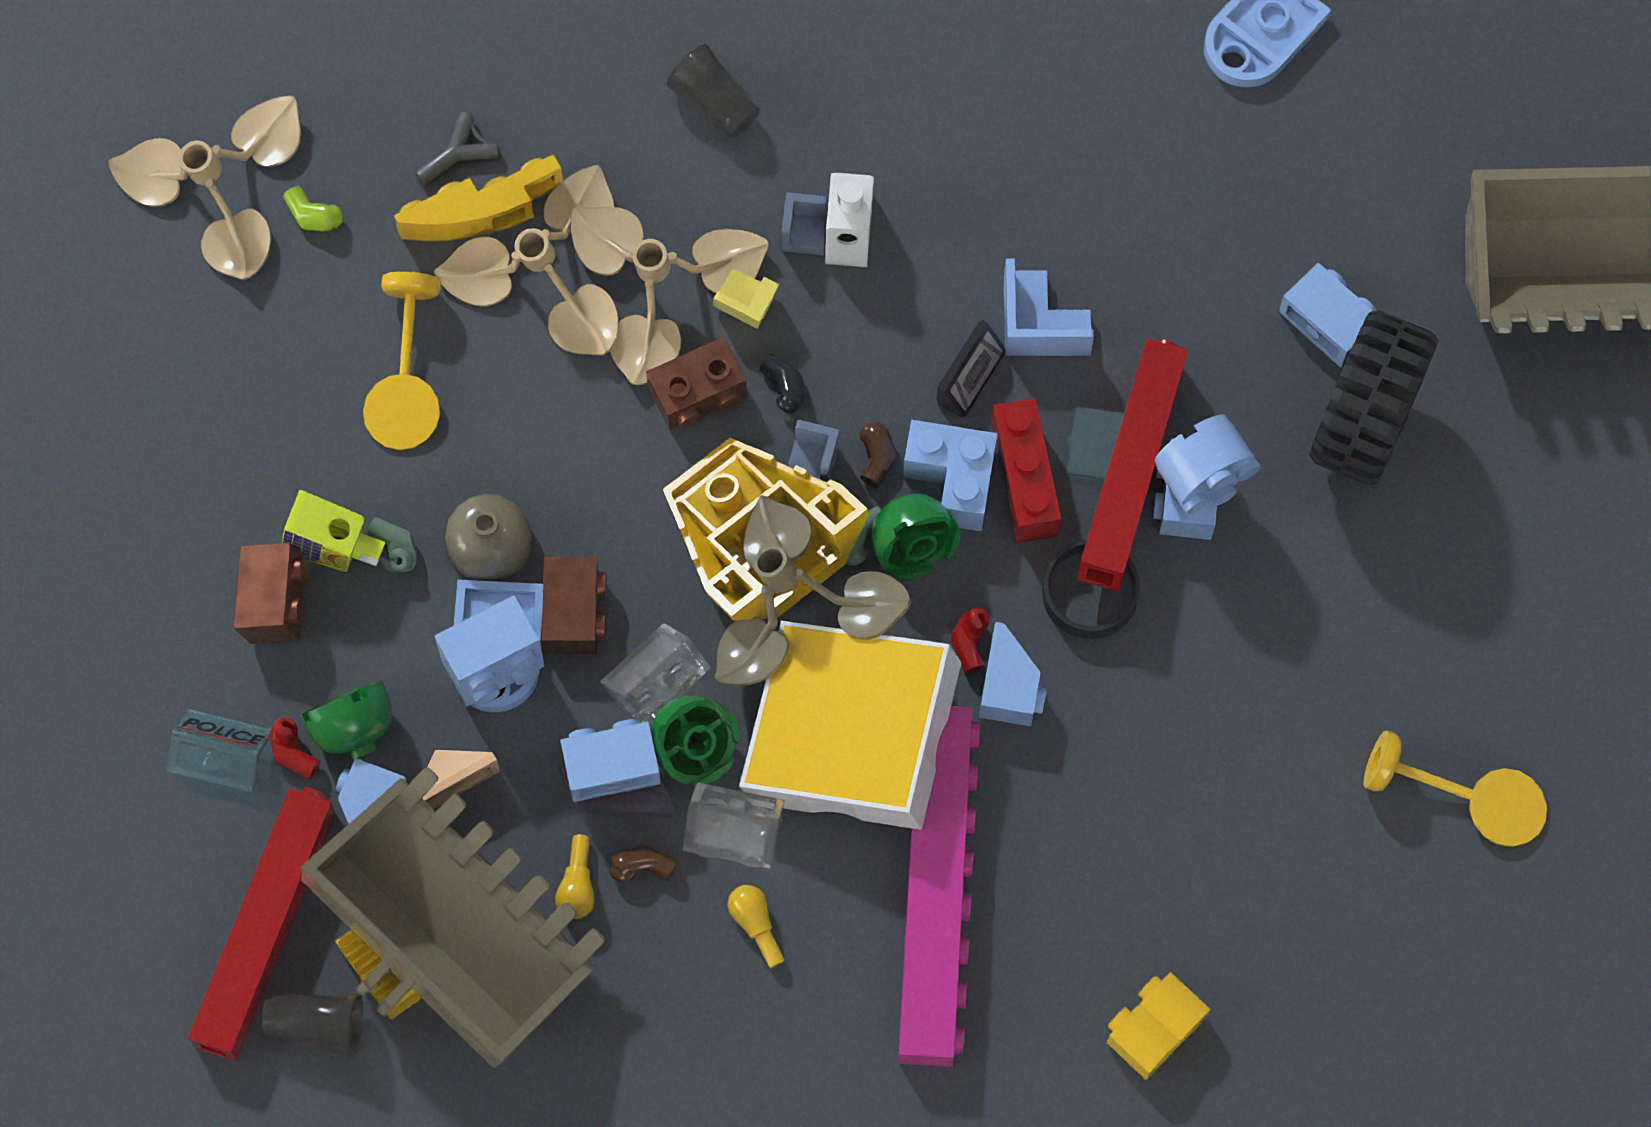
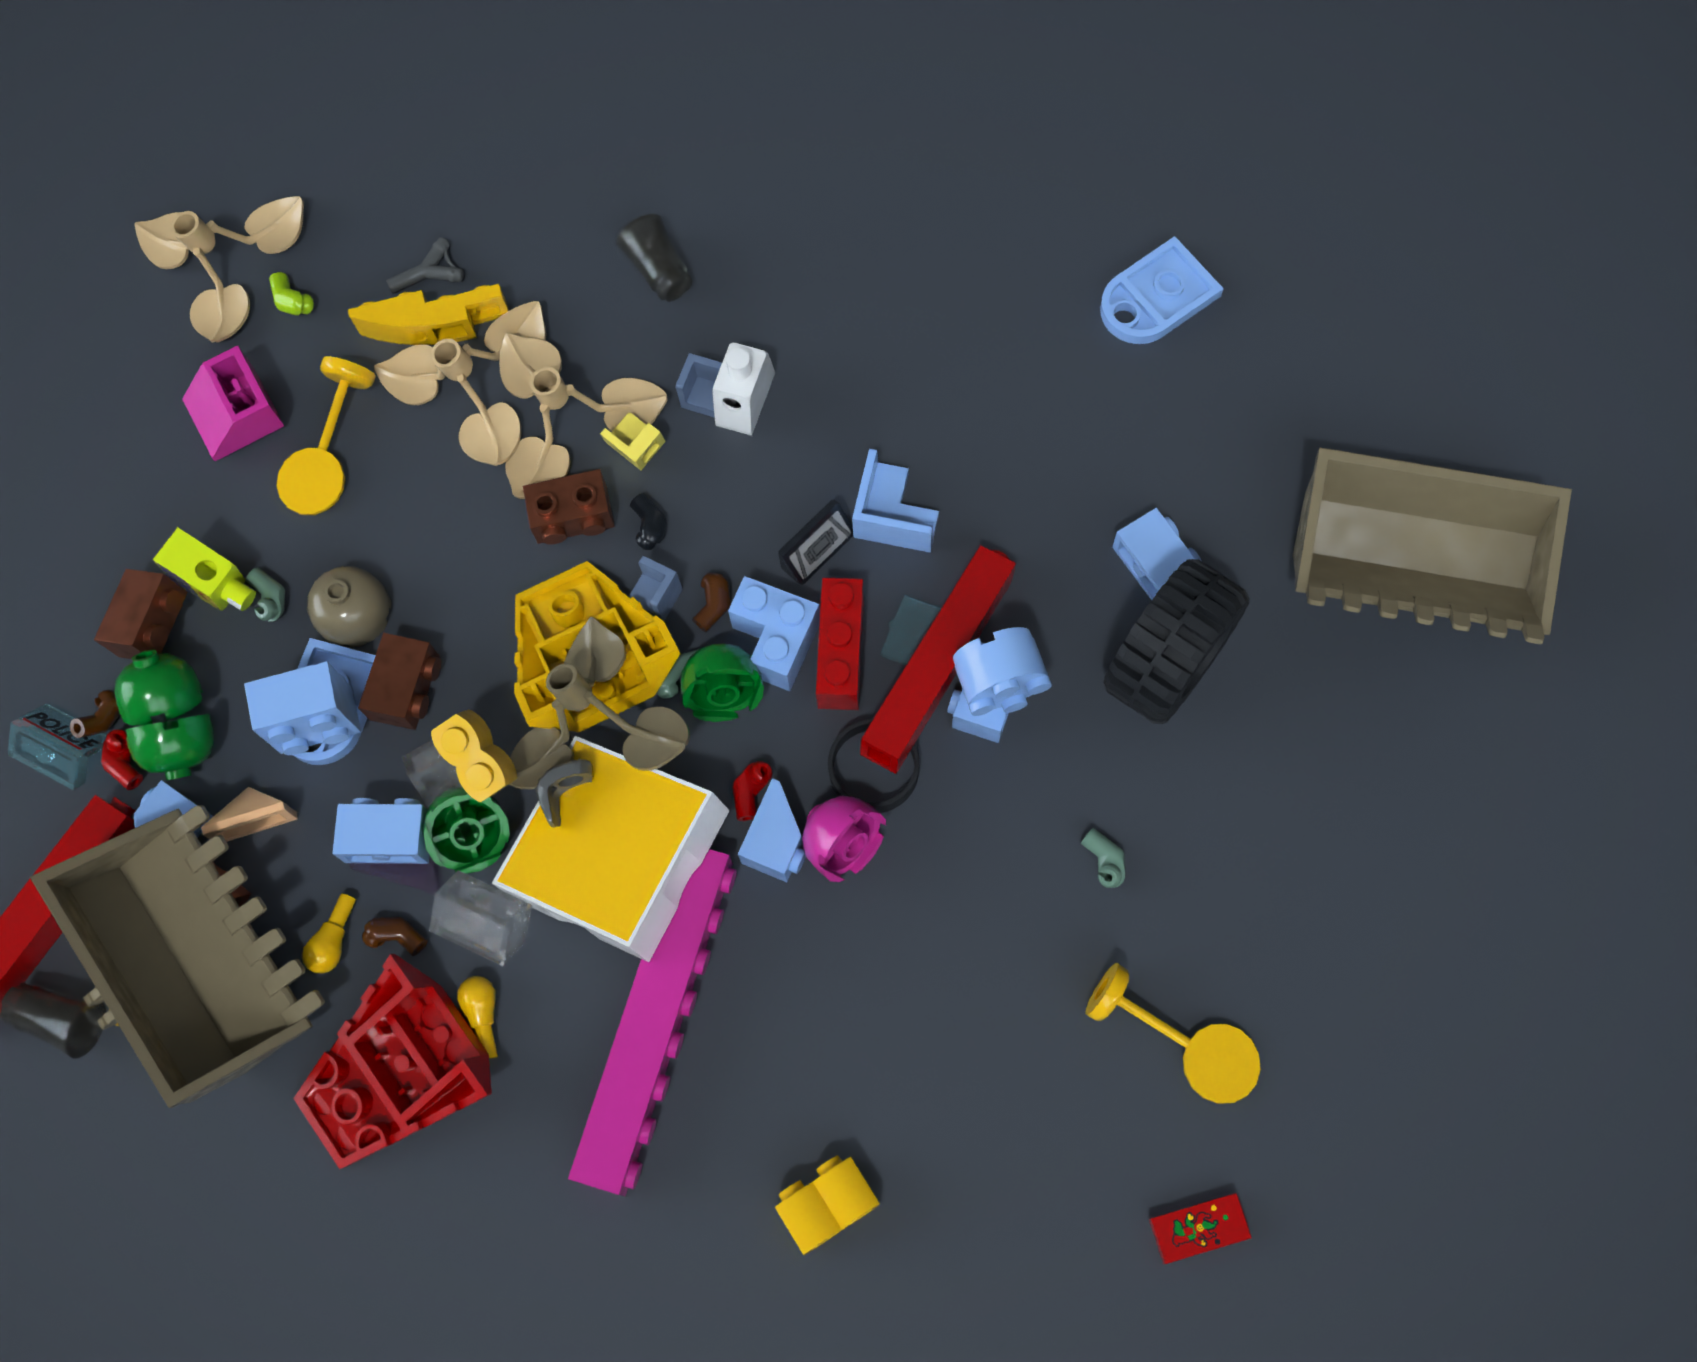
camera: 20 degrees right, 0 degrees up
(257, 715) = (101, 720): none -> reddish brown arm
(291, 345) = (230, 404): none -> dark pink slope
(319, 663) = (156, 686): none -> green cylinder
(685, 651) = (469, 746): none -> yellow brick
(686, 993) = (394, 1067): none -> red wedge
(785, 666) = (556, 782): none -> dark grey hair
(1079, 664) = (842, 836): none -> dark pink cylinder
(1352, 631) = (1110, 858): none -> sand green arm
(1522, 966) = (1200, 1228): none -> red tile

